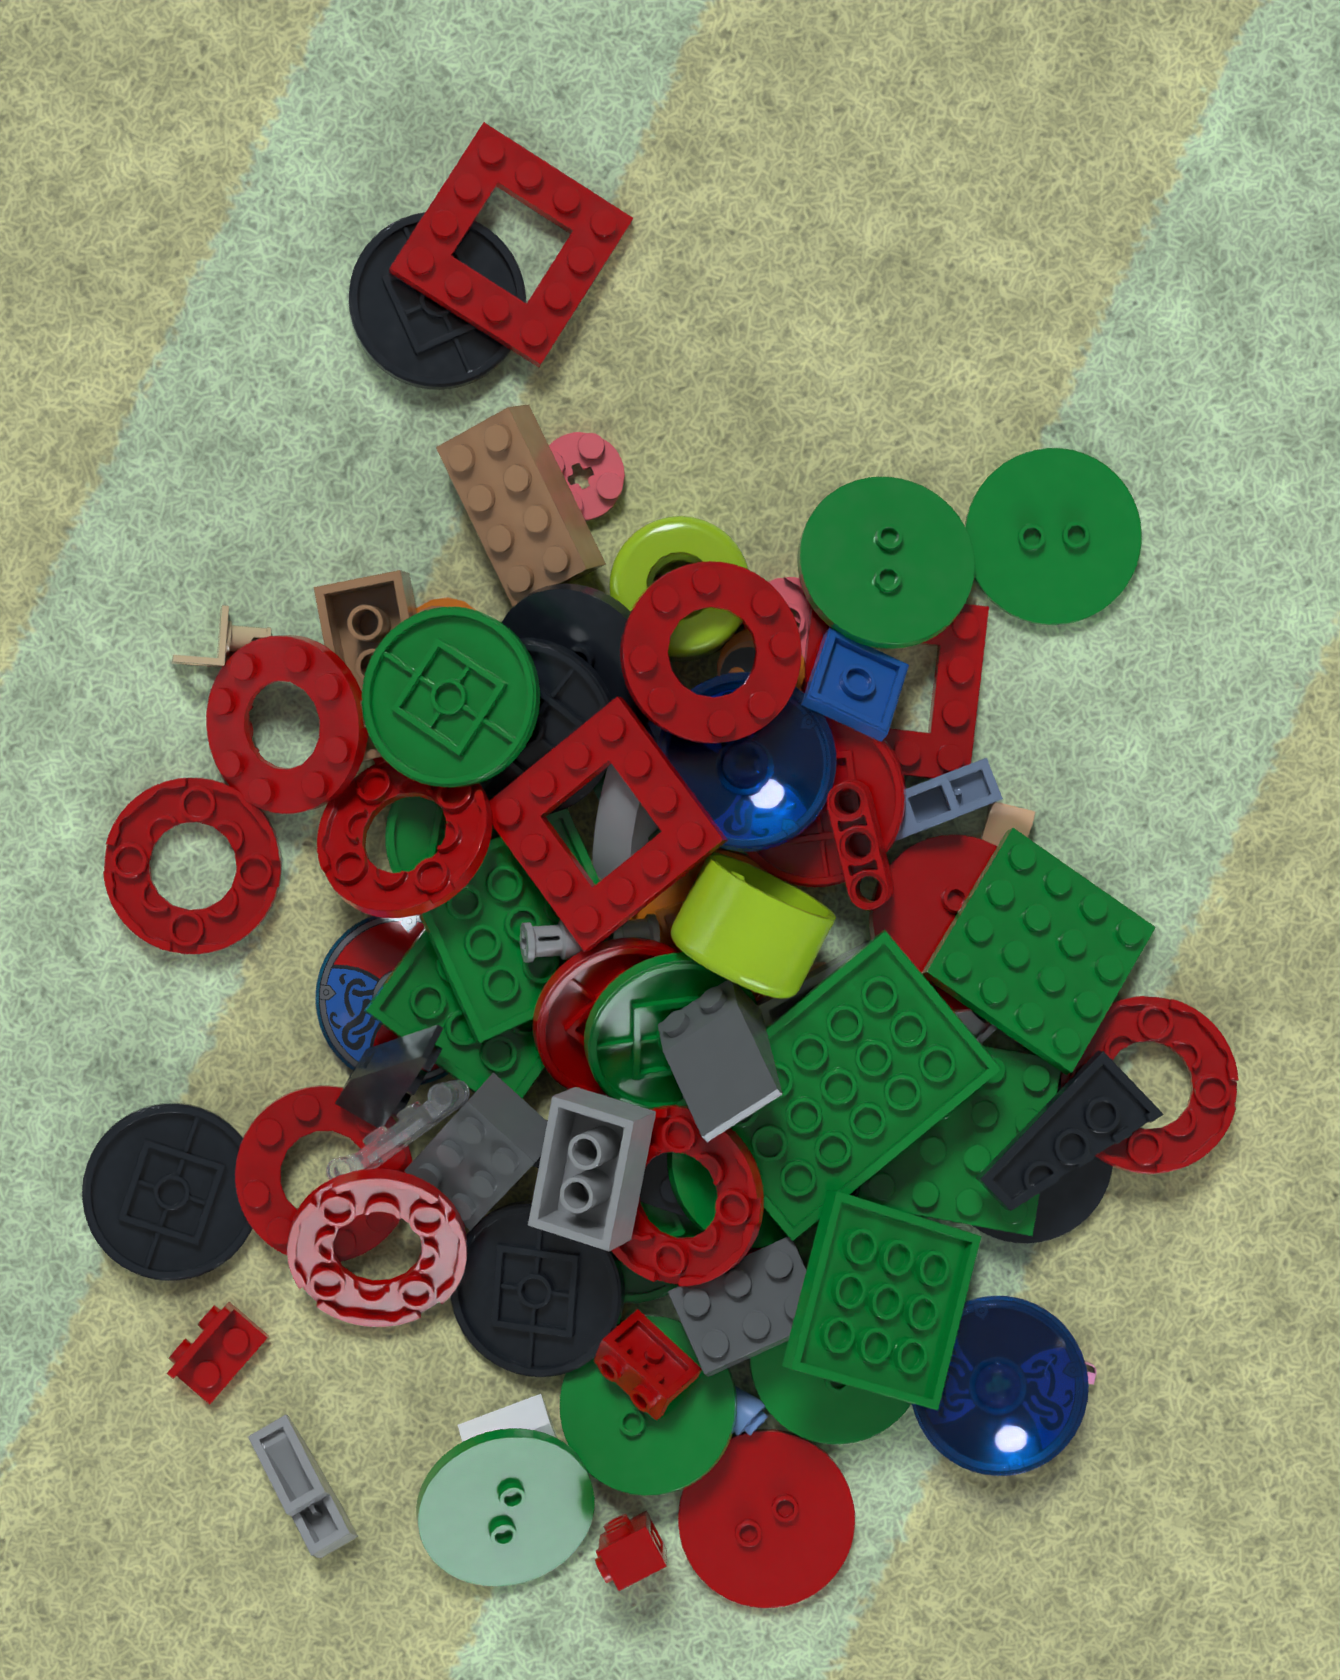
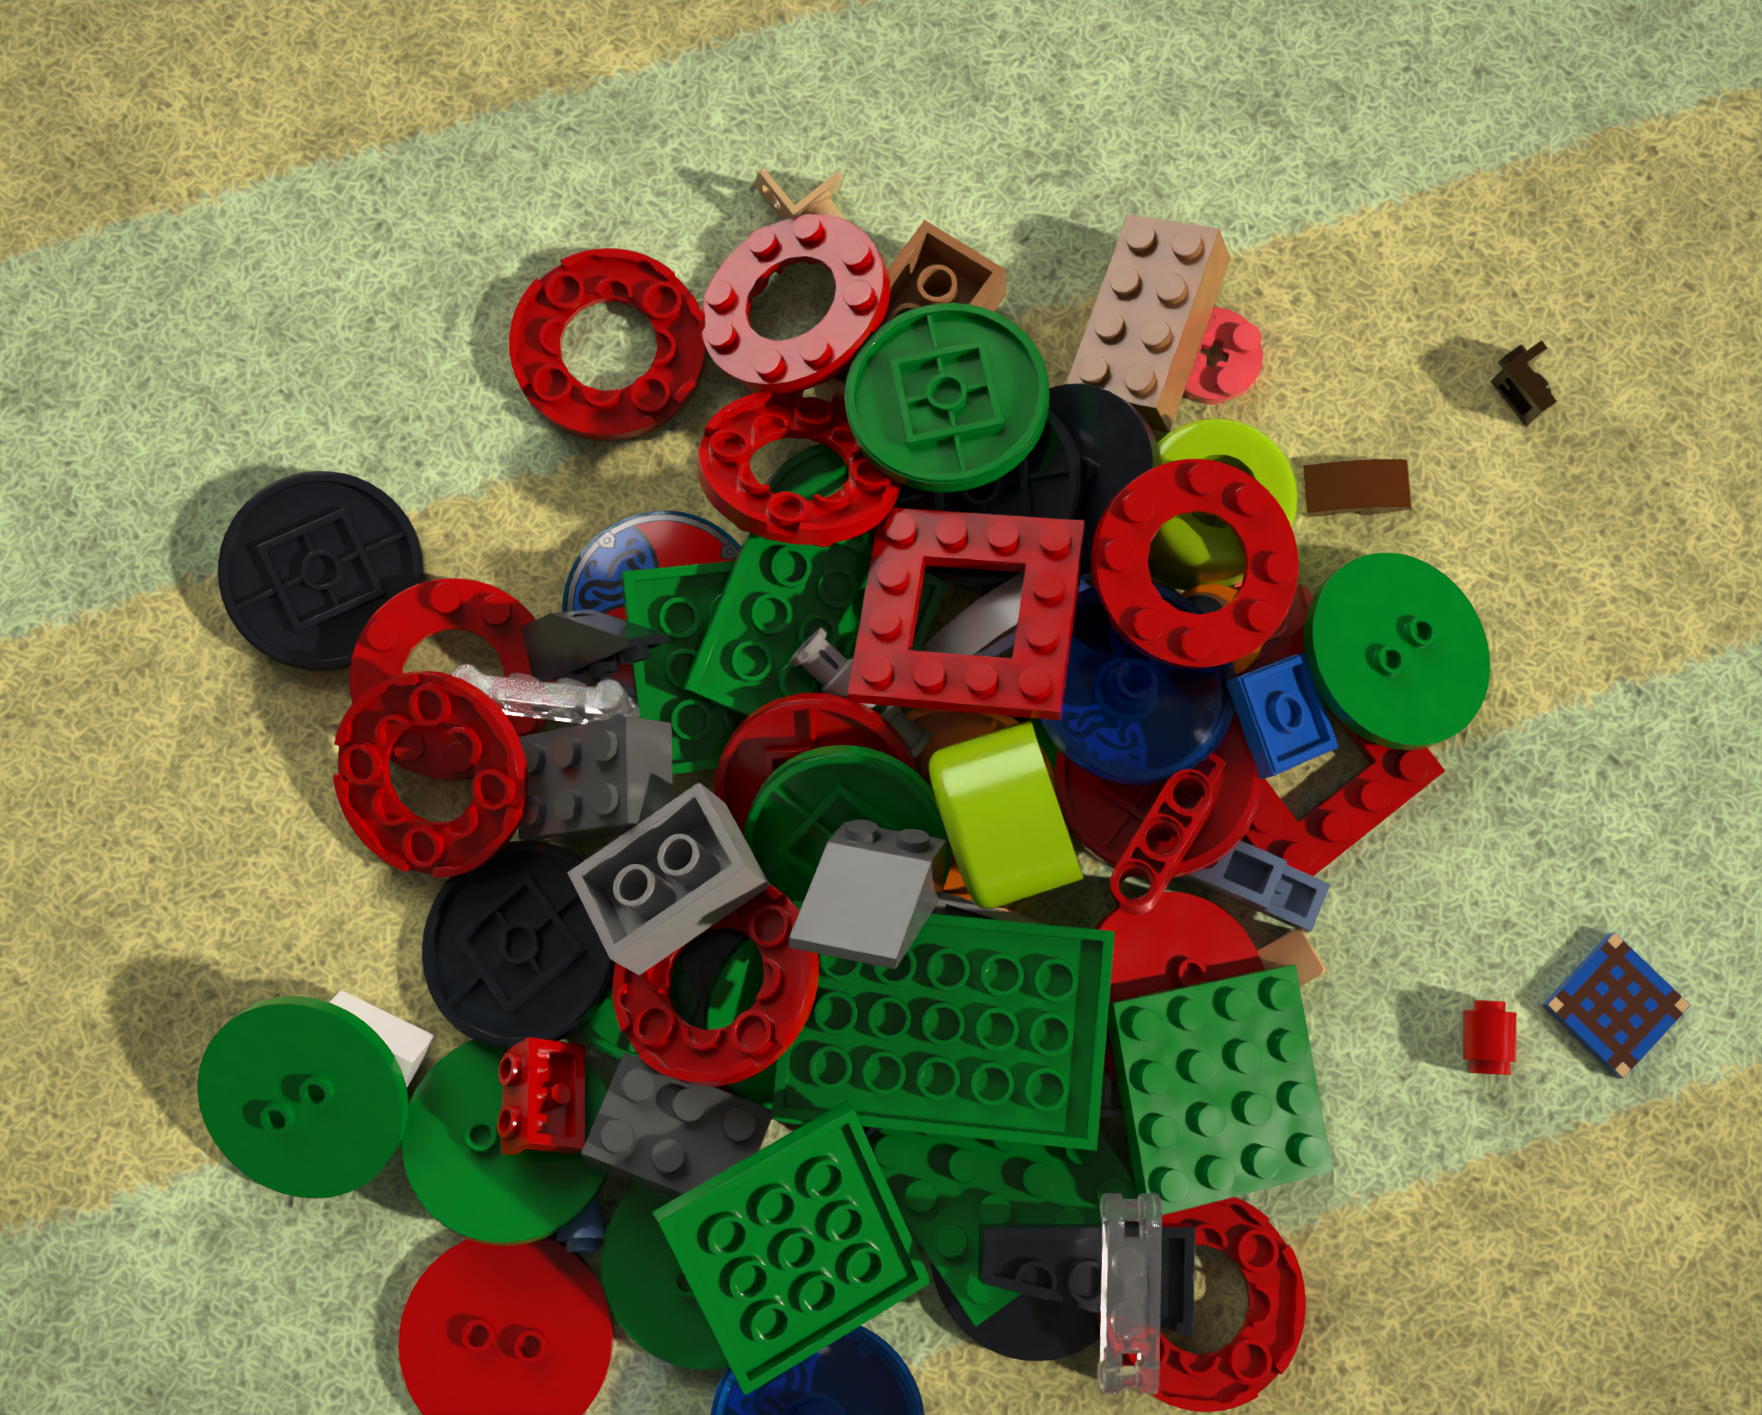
camera: 35 degrees right, 10 degrees down
(218, 1351) = (219, 732): red bracket -> none
(302, 1487) = (164, 913): light grey slope -> none
(412, 333) = (1234, 122): black plate -> none
(499, 162) = (1381, 64): red plate -> none
(630, 1550) = (364, 1244): red brick -> none
(758, 473) = (1356, 486): none -> reddish brown slope
(802, 299) = (1521, 387): none -> dark brown bracket
(1053, 536) = (1551, 770): green plate -> none
(1101, 1129) = (1130, 1294): none -> clear plate
(1173, 750) = (1489, 1038): none -> red brick
(1232, 648) = (1616, 1005): none -> tile

